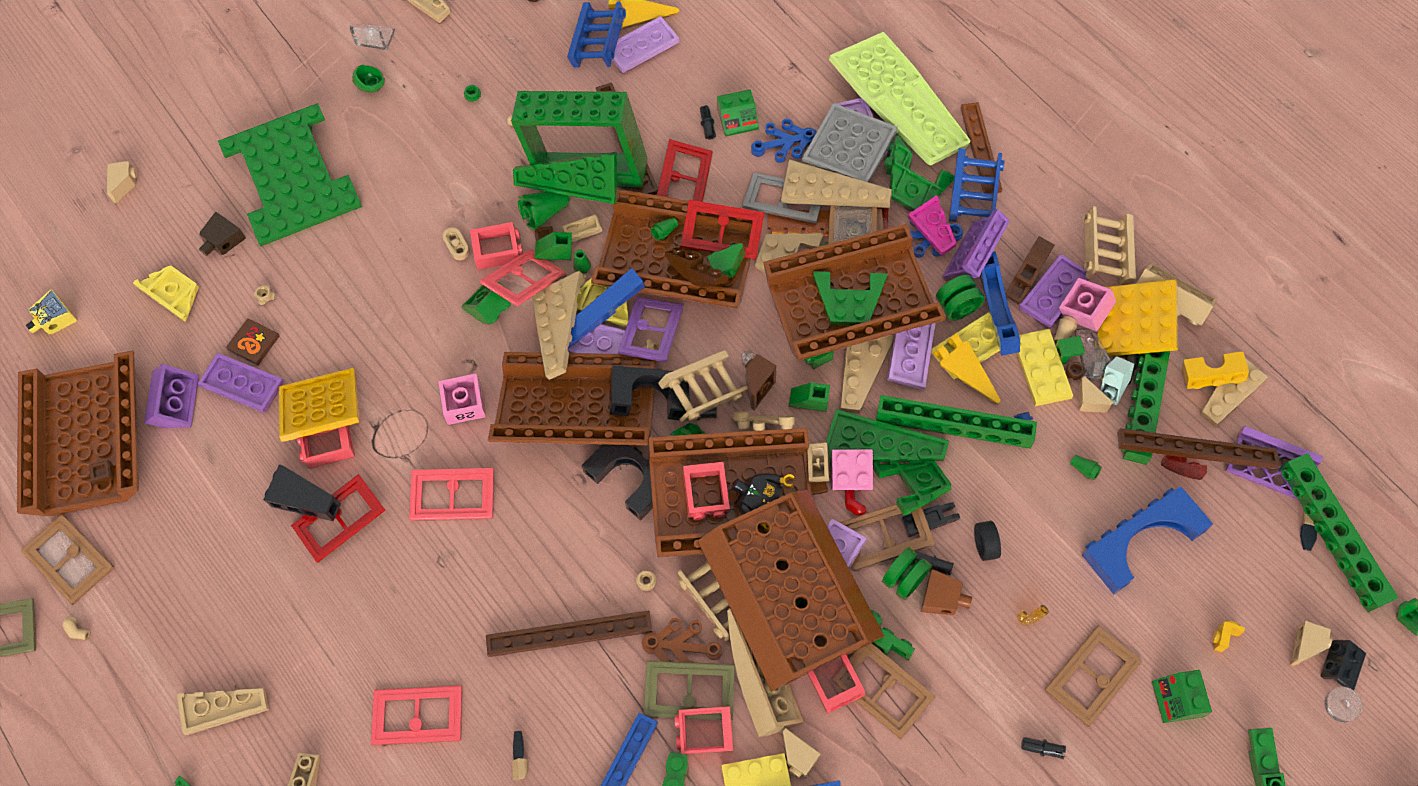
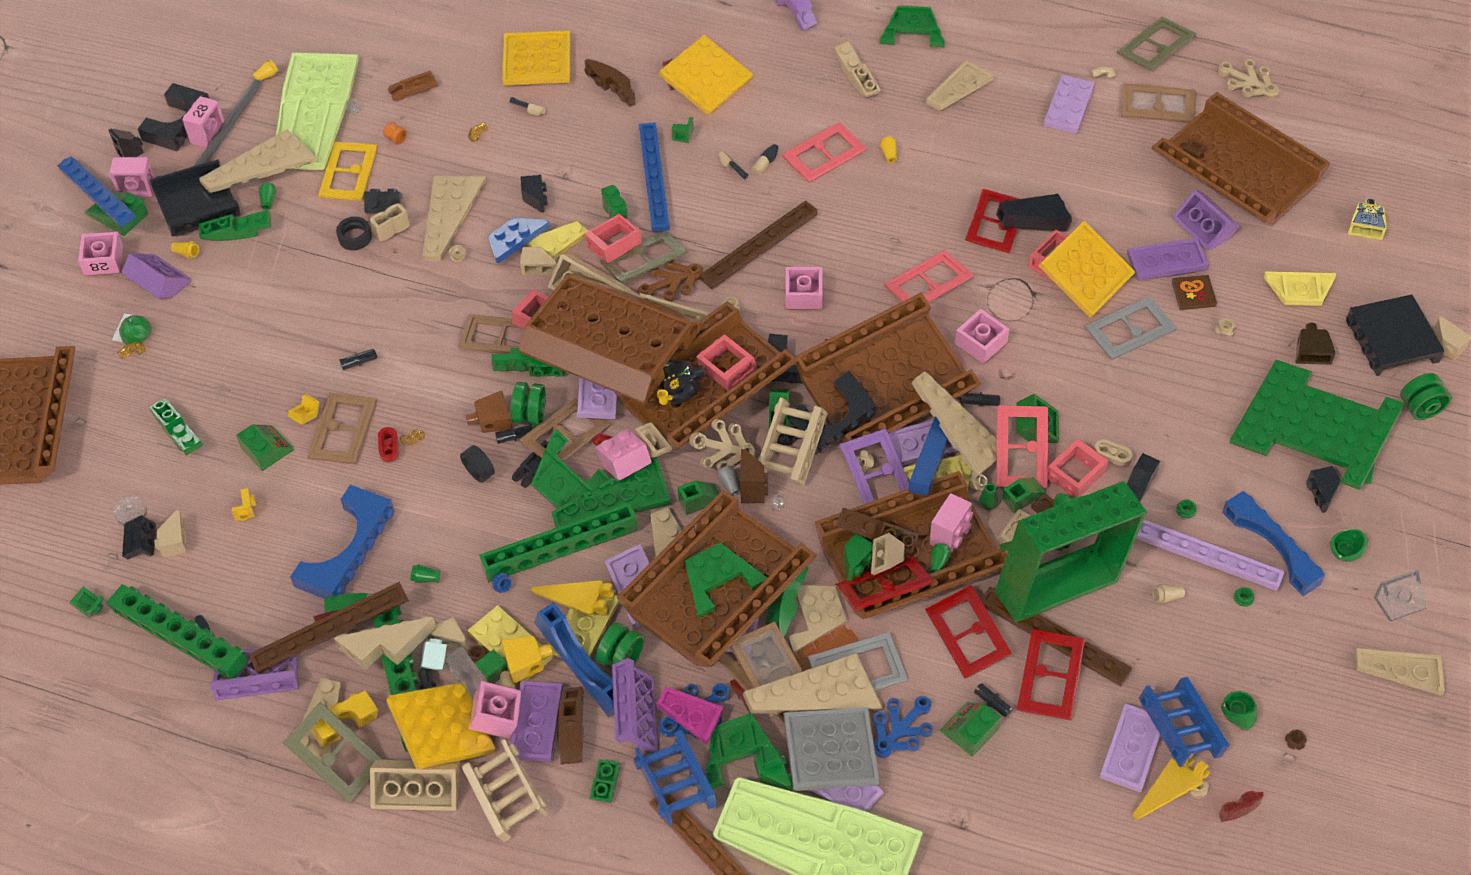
camera: 145 degrees right, 10 degrees down
(143, 613) = (1069, 104): none -> lavender plate
(154, 206) = (1393, 333): none -> black panel
(196, 139) = (1425, 396): none -> green wheel
(334, 329) = (1139, 340): none -> light grey door
(336, 128) = (1324, 485): none -> black slope
(356, 669) = (888, 147): none -> yellow cone
(418, 84) = (1302, 571): none -> blue arch
(445, 169) = (1186, 504): none -> green plate
(454, 211) = (1143, 475): none -> black slope
(469, 136) = (1210, 555): none -> lavender plate
(479, 745) = (765, 158): none -> piece
(507, 344) = (981, 399): none -> black axle
(552, 23) = (1240, 709): none -> green hair
(570, 547) = (803, 287): none -> bright pink brick
(636, 239) = (951, 522): none -> bright pink brick
(685, 112) = (1032, 669): none -> red door
(707, 239) = (886, 553): none -> tan slope
(772, 403) = (729, 480): none -> light grey cone
(1026, 221) = (605, 781): none -> green slope
(1041, 333) = (524, 656): none -> yellow torso
(1058, 624) = (388, 446): none -> red plate
(1126, 712) = (305, 411): none -> yellow bracket
(1149, 401) = (391, 640): none -> tan slope
(1169, 476) = (341, 601): none -> green slope
(1246, 332) = (321, 767): none -> olive door

